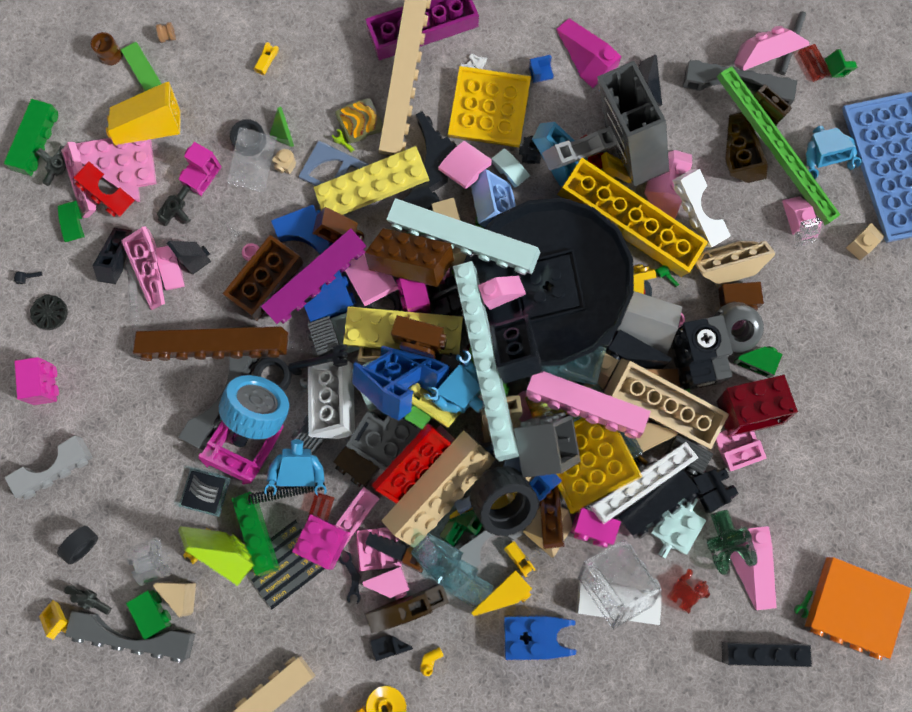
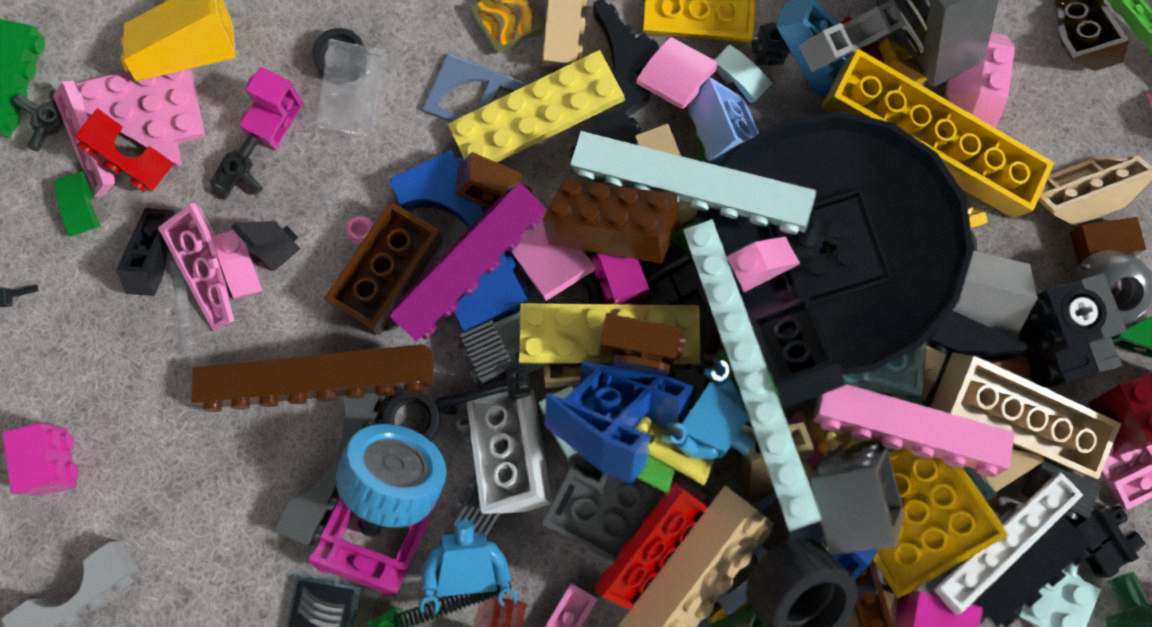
camera: 10 degrees left, 0 degrees up
(49, 312) = (53, 348): pearl dark grey wheel -> none
(280, 128) = (389, 38): bright green slope -> none
(284, 161) = (399, 87): tan plate -> none
(340, 139) = (482, 50): lime hand -> none
(356, 466) = (556, 552): dark brown brick -> none
(664, 271) = (991, 213): green hand -> none
(690, 189) = (1021, 86): white arch -> none

